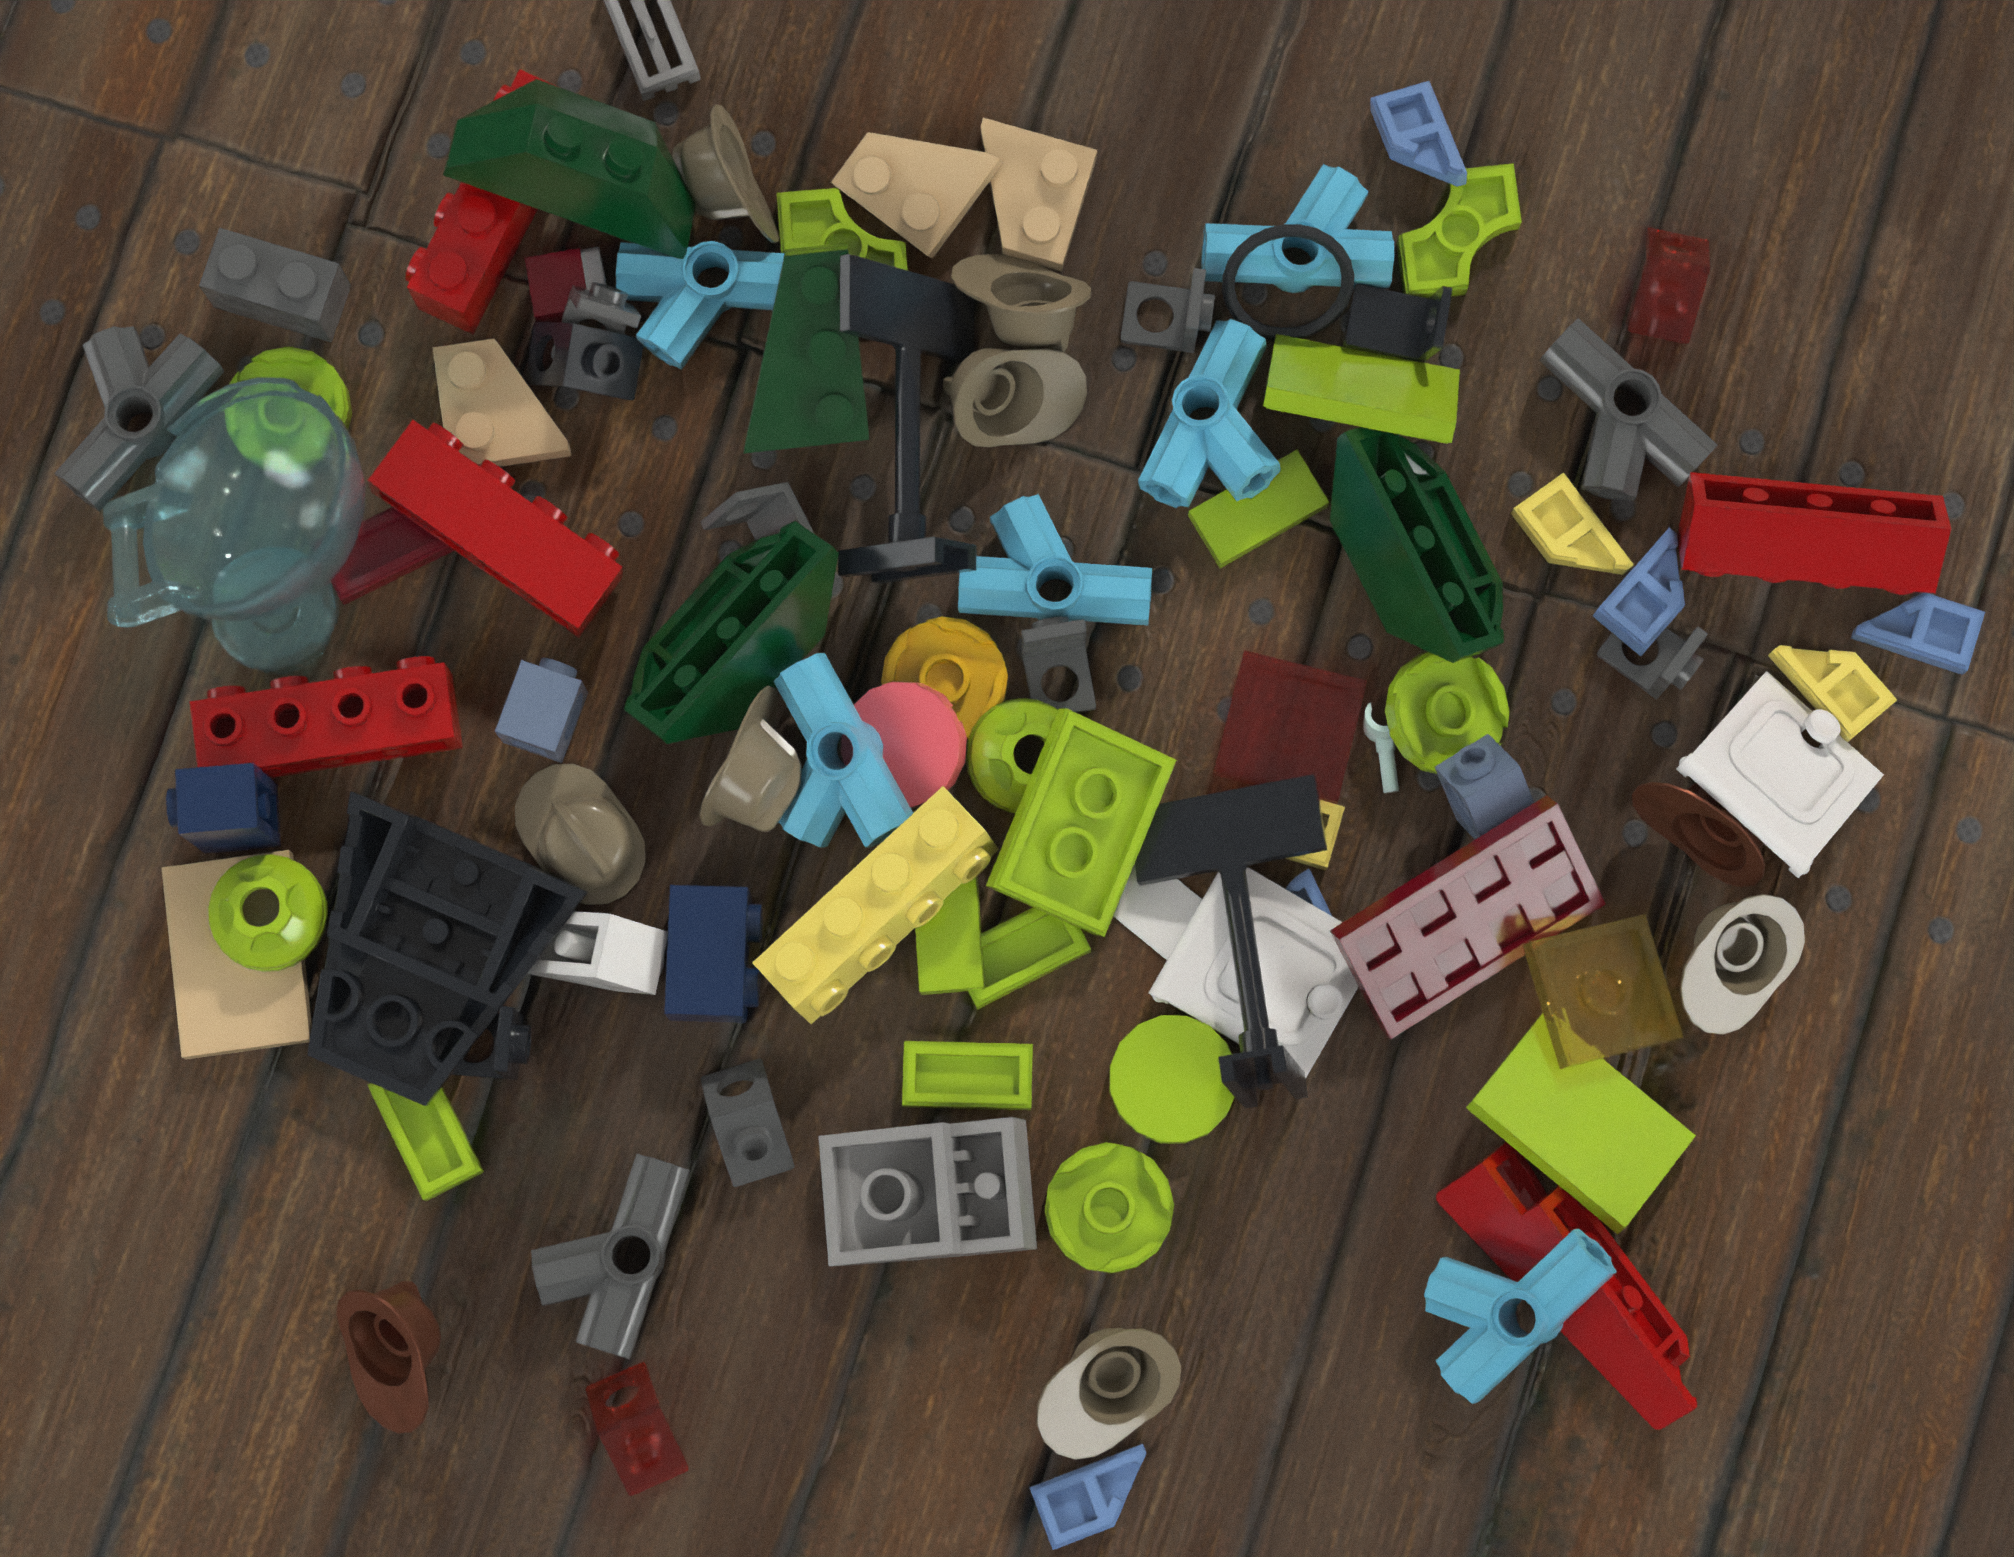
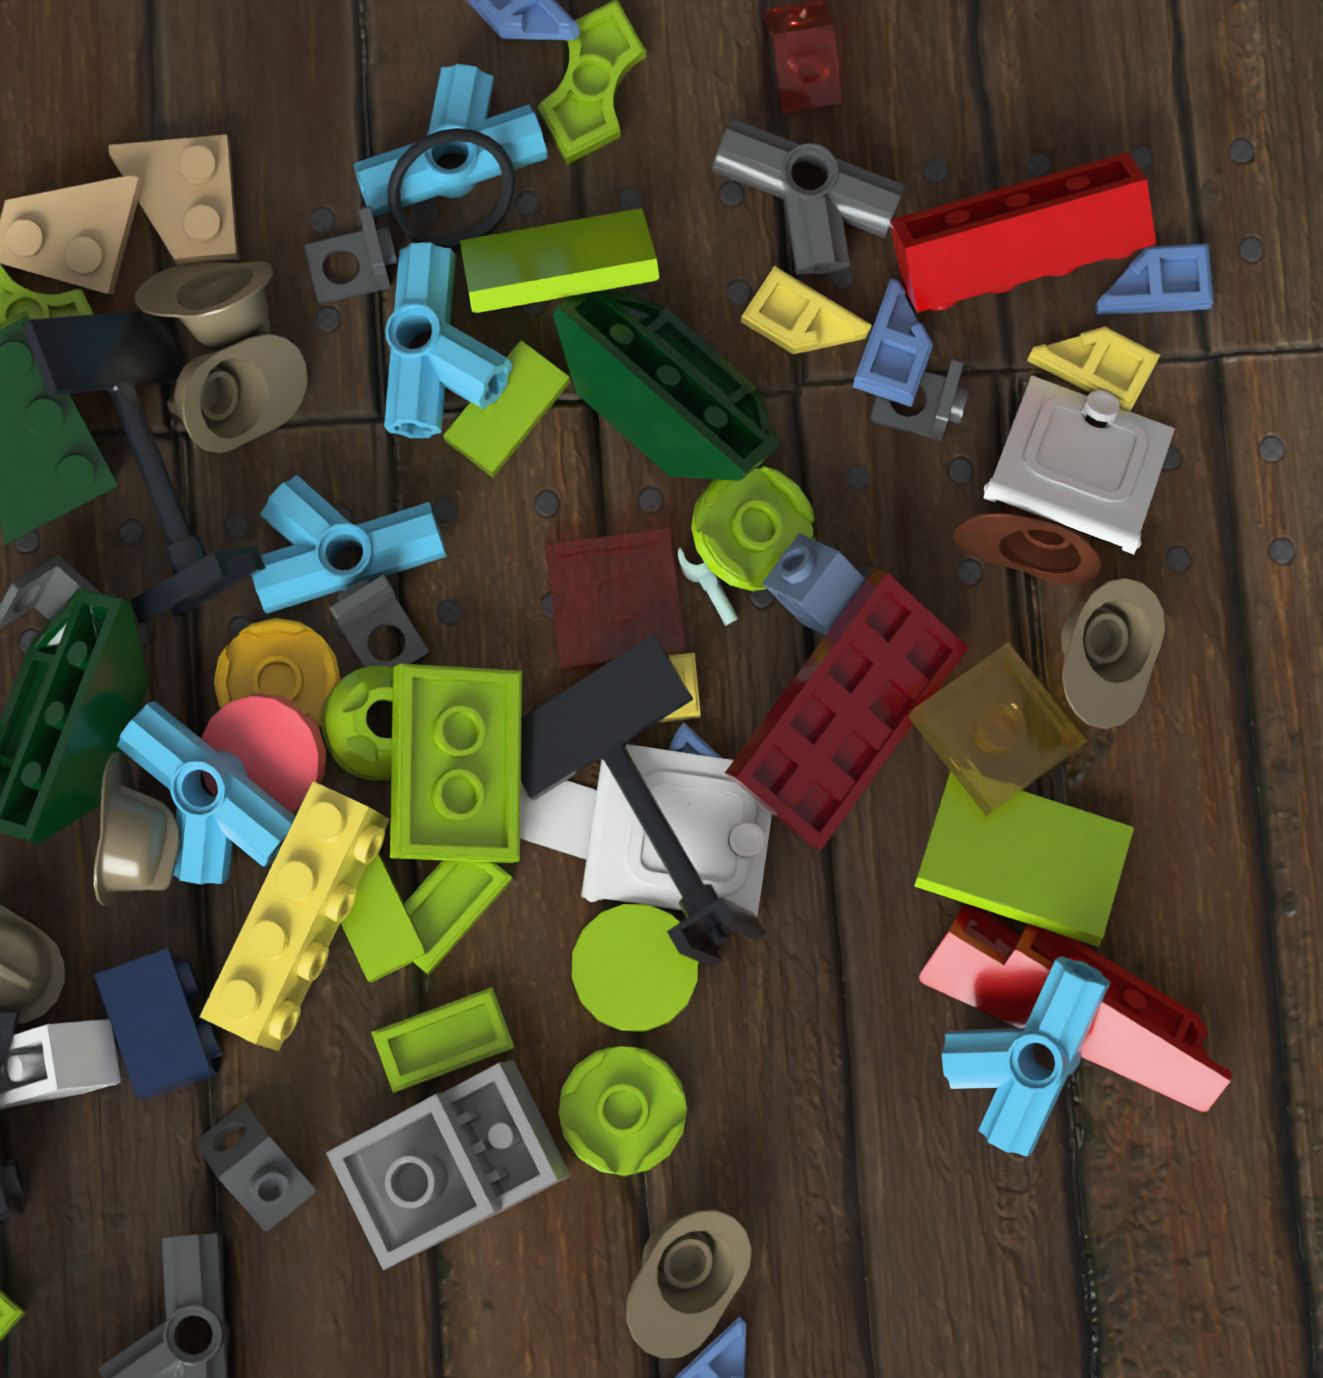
camera: 20 degrees left, 0 degrees up
(1397, 322) = (567, 187): black bracket -> none

